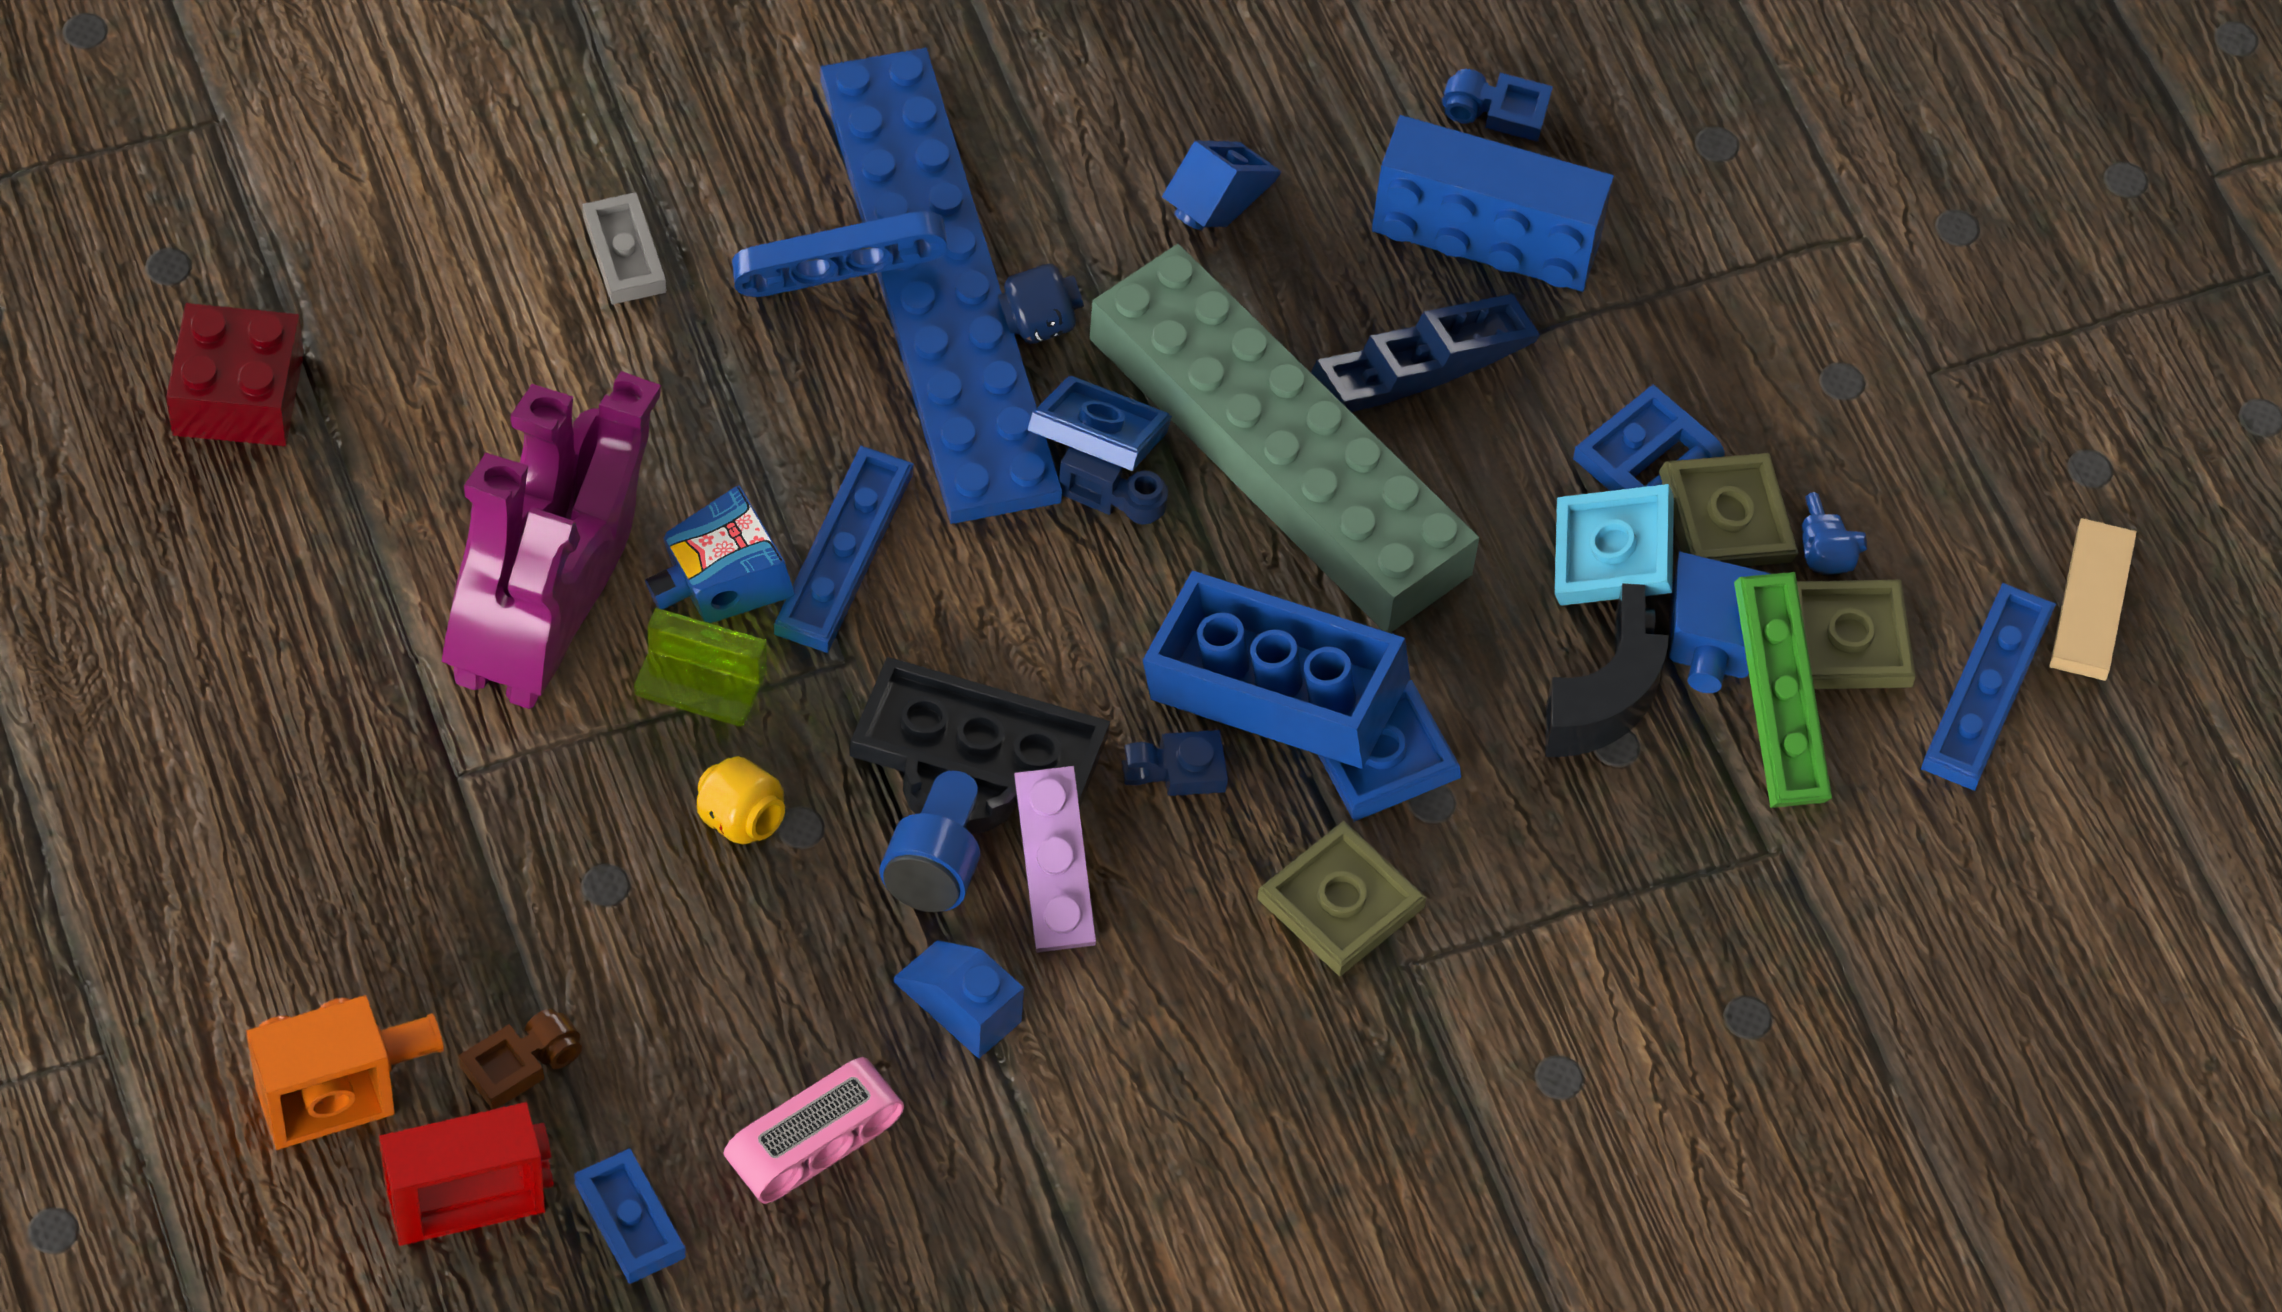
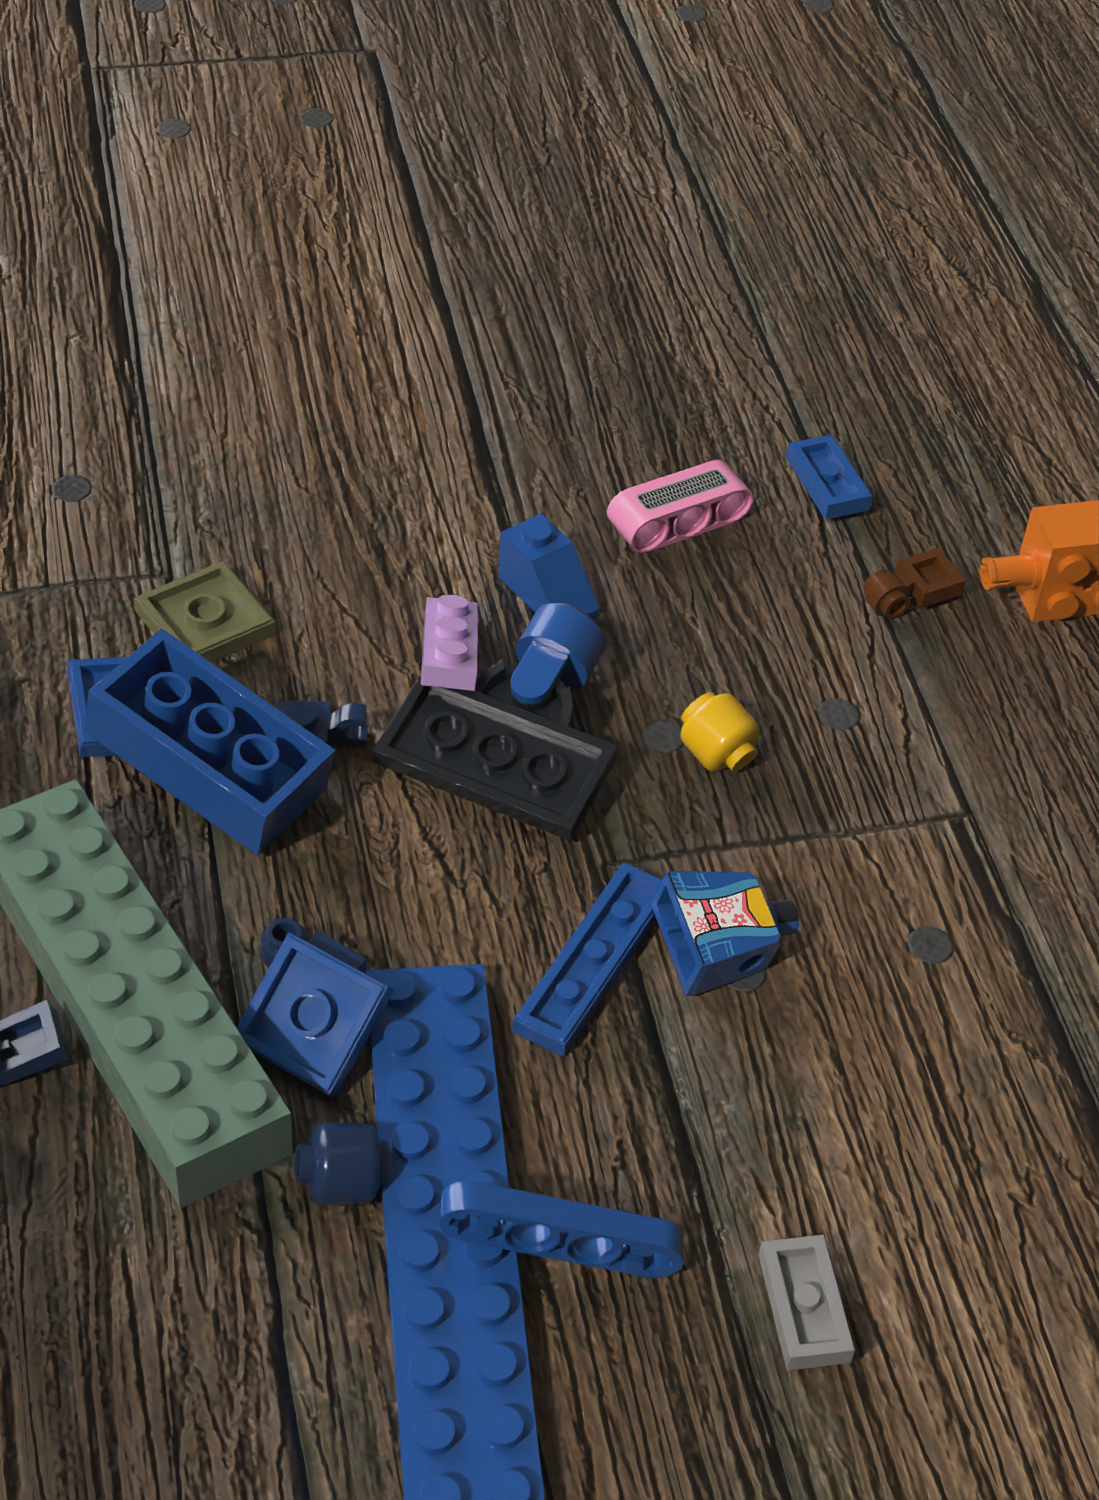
camera: 170 degrees left, 10 degrees down
(465, 1172) = (961, 452): red window -> none
(545, 535) = (906, 906): magenta piece -> none
(701, 667) = (726, 847): clear neon green panel -> none
(1218, 183) = (90, 1290): blue slope -> none

